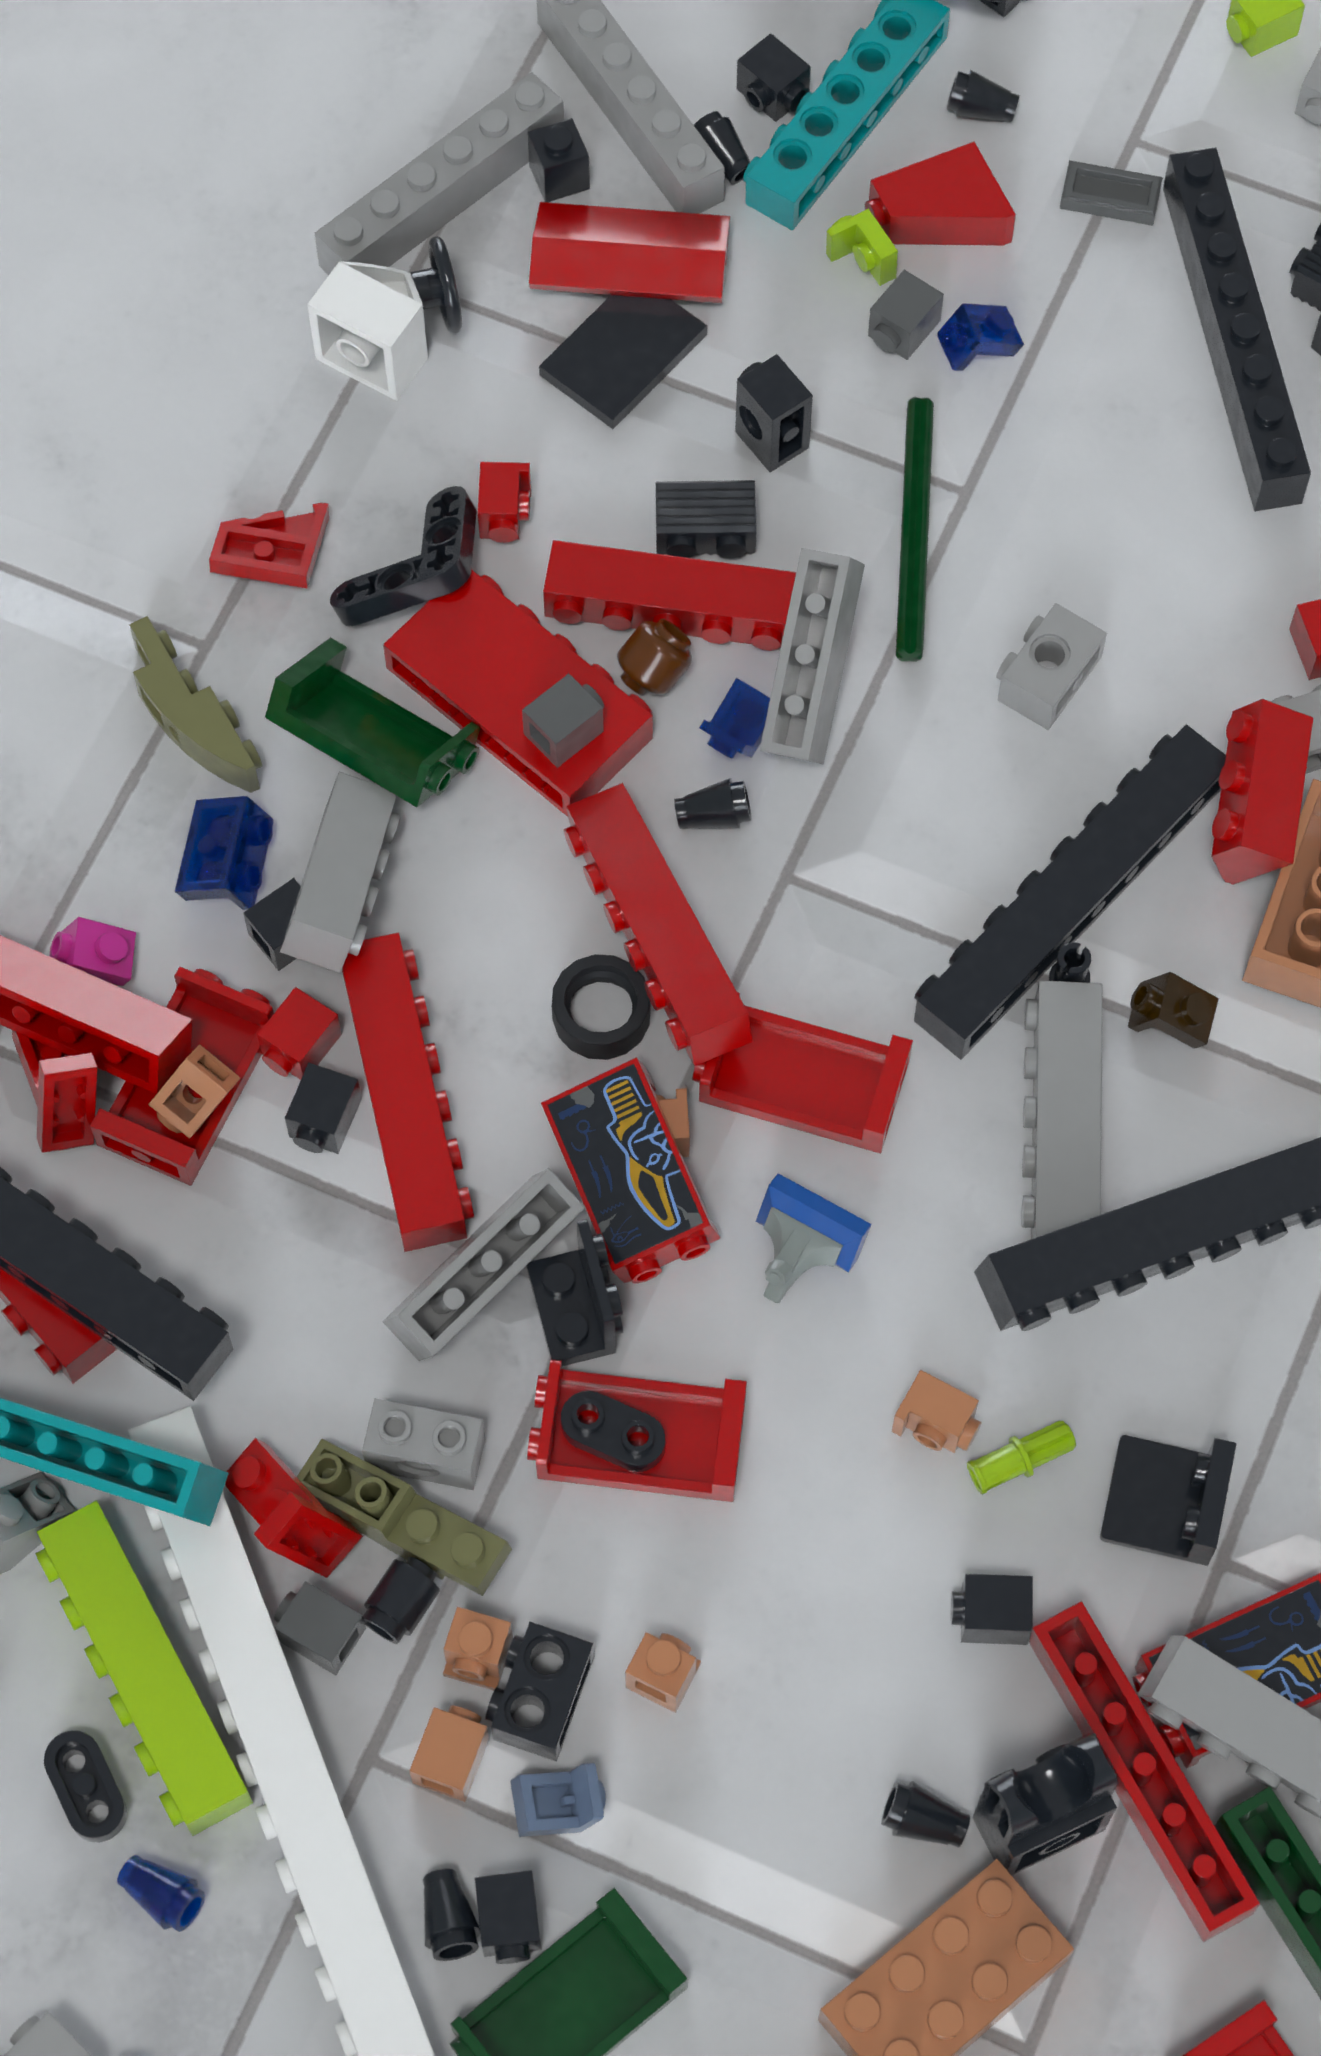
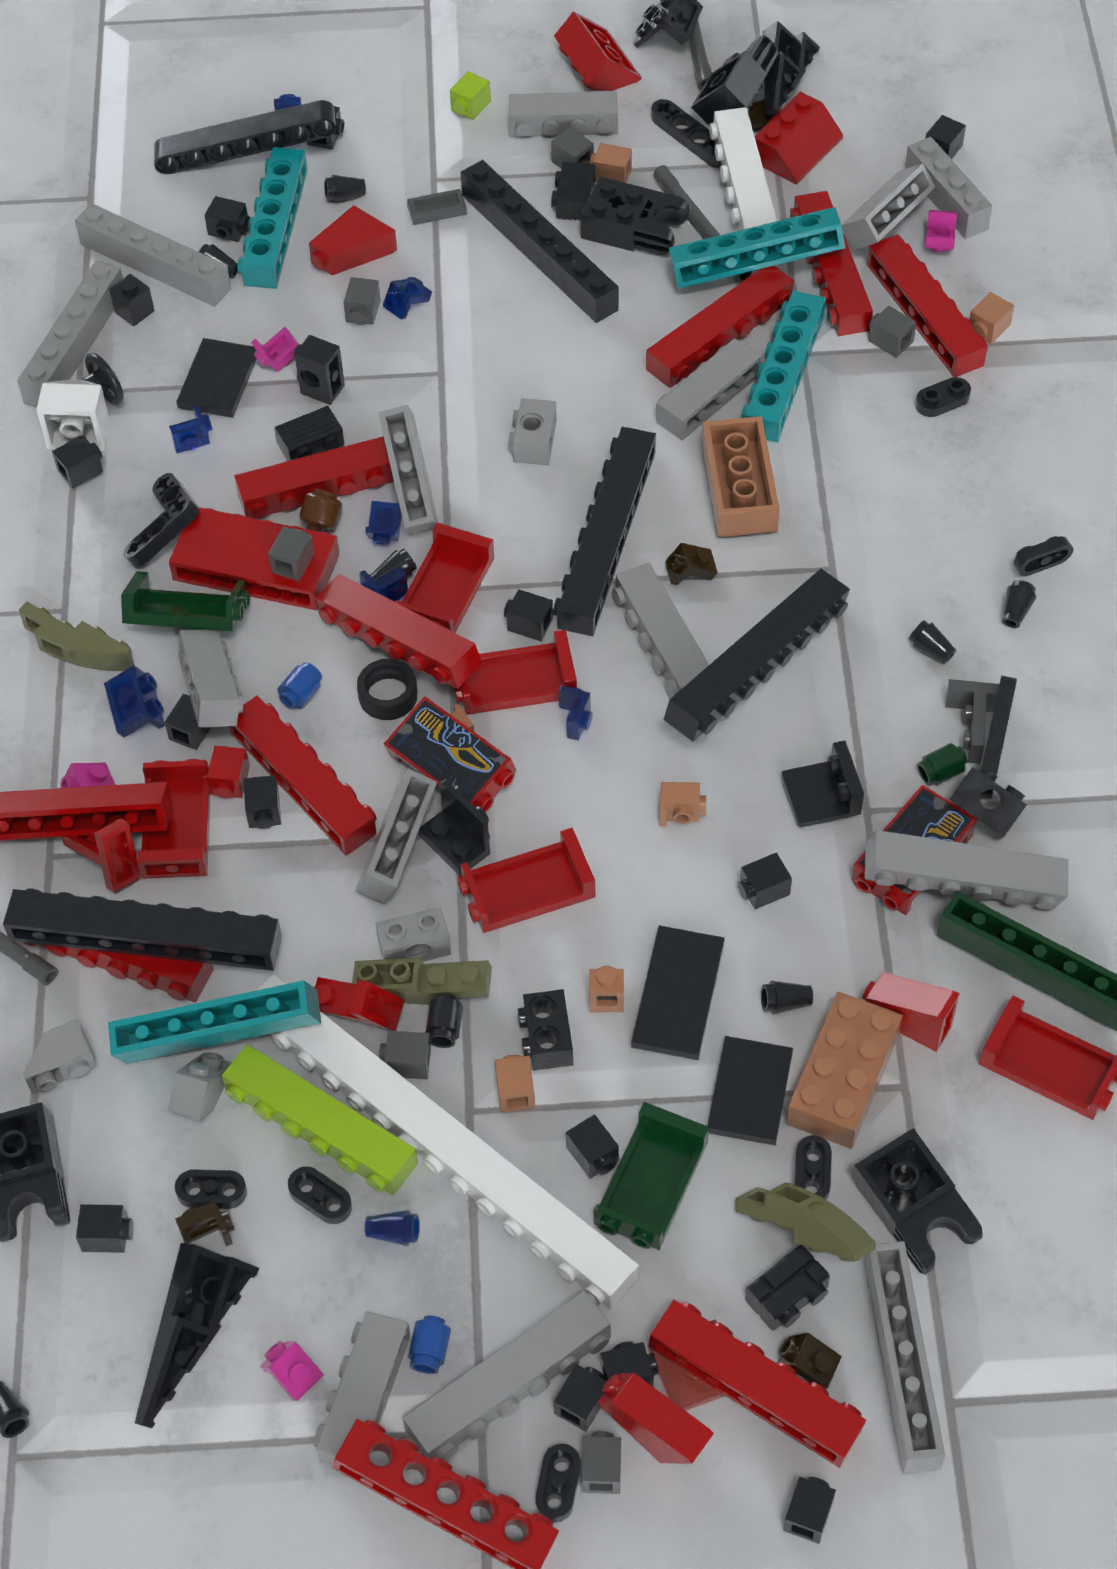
camera: 25 degrees left, 10 degrees down
(207, 1077) = (190, 808): nougat brick -> none
(271, 546) = (75, 545): red wing -> none
(342, 407) = (78, 460): none -> black brick
(448, 1918) = (561, 1165): black cone -> none
(475, 940) = (299, 685): none -> blue brick
(477, 1648) = (500, 1024): nougat brick -> none
(503, 499) = (193, 470): red brick -> none
(534, 434) = (191, 433): none -> clear blue bracket
(558, 1801) = (588, 1079): sand blue bracket -> none
(610, 1432) = (512, 888): black plate -> none
(629, 252) = (196, 328): red slope -> none
(684, 837) = (391, 585): none -> clear blue bracket
(732, 345) = (276, 351): none -> dark pink bracket
(770, 1724) = (678, 992): none -> black tile
(781, 866) = (449, 576): none -> red panel
(790, 1940) = (750, 1090): none -> black tile
(806, 1234) = (561, 747): piece -> none
(864, 1190) = (580, 713): none -> clear blue bracket
(868, 243) = (323, 275): lime bracket -> none
(876, 982) = (529, 615): none -> black brick
(914, 530) = (424, 399): dark green axle -> none
(1021, 1456) = (735, 805): lime axle -> none
(1048, 1805) = (850, 950): black brick -> none
(1071, 963) = (627, 562): black pin -> none
(1107, 1944) = (925, 1008): none -> slope
(1146, 1771) = (887, 919): red brick -> none
(1260, 790) = (680, 436): red slope -> none

